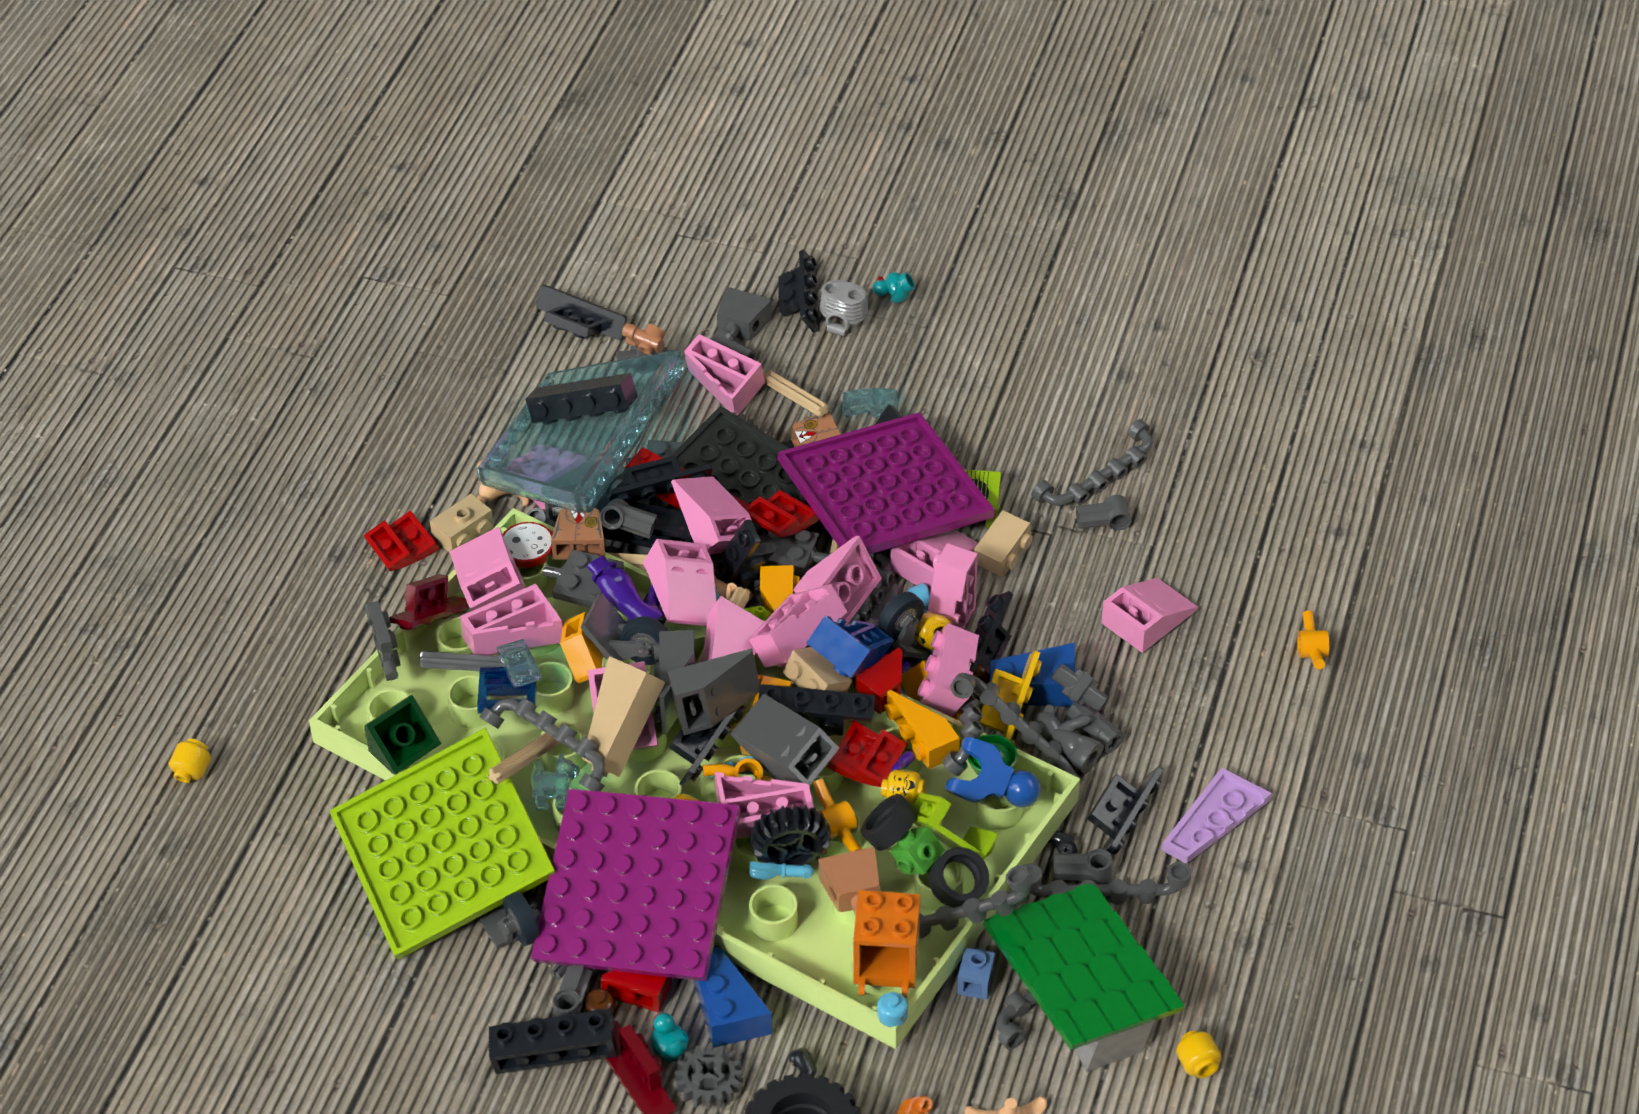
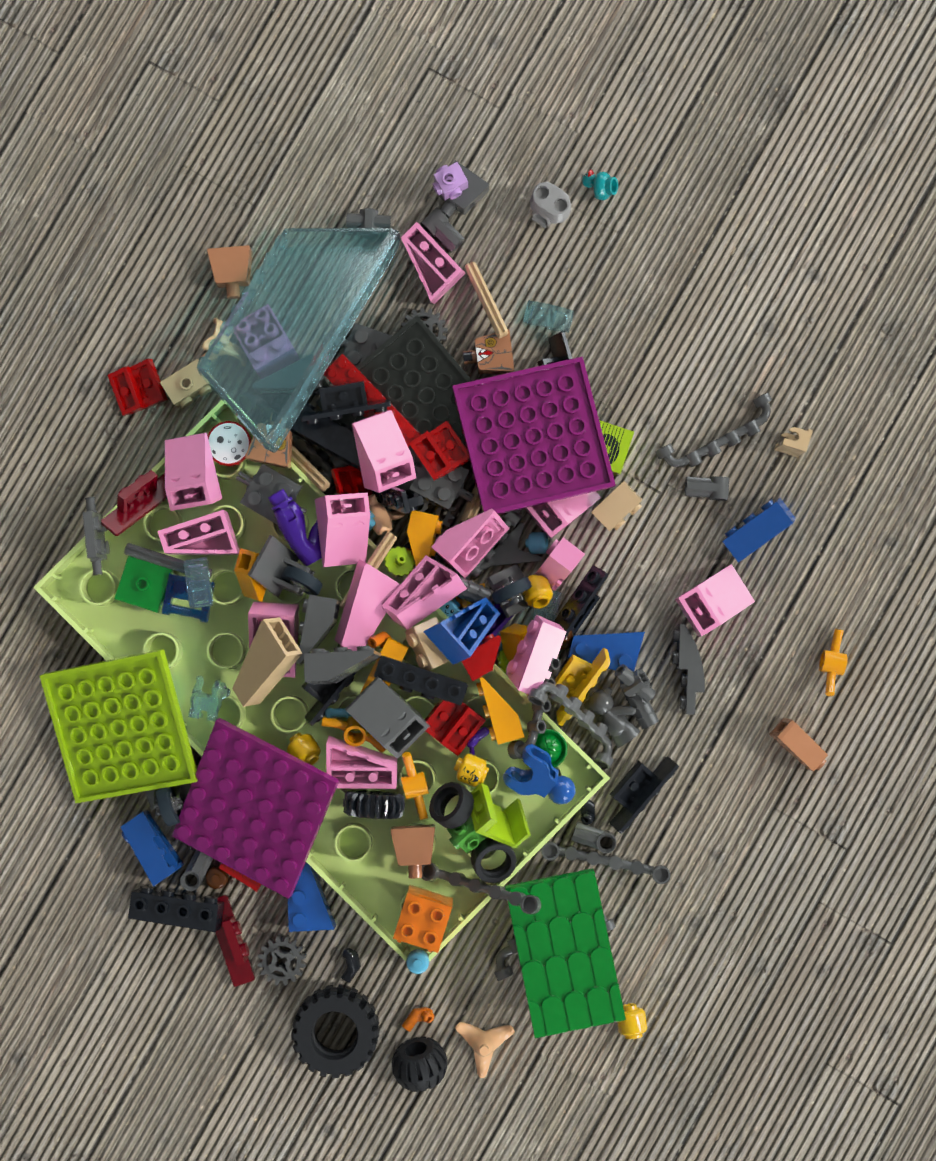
camera: 15 degrees right, 40 degrees up
(400, 735) = (99, 631): dark green slope -> none
(448, 689) = (143, 584): none -> green plate
(490, 415) = (231, 268): none -> nougat torso
(507, 981) = (151, 847): none -> blue wedge
(522, 758) = (189, 677): tan axle -> none
(563, 734) = (220, 670): dark grey bar -> none
(578, 315) = (320, 160): black bracket -> none
(581, 398) = (301, 288): black brick -> none
(631, 518) = (305, 441): dark grey piece -> none
(646, 340) = (373, 217): nougat plate -> none
(668, 1038) = (259, 925): teal animal -> none
(728, 294) = (450, 181): none -> lavender brick
(770, 870) = (382, 823): medium azure piece -> none
(799, 291) = (517, 170): black bracket -> none
(976, 973) = (492, 915): medium blue brick -> none
(1143, 676) = (688, 658): none -> dark grey slope
(1177, 533) = (758, 529): none -> blue wedge
(1186, 450) = (795, 444): none -> tan hinge
(1215, 812) = (712, 804): lavender wing -> none
(1301, 722) = (799, 744): none -> nougat slope

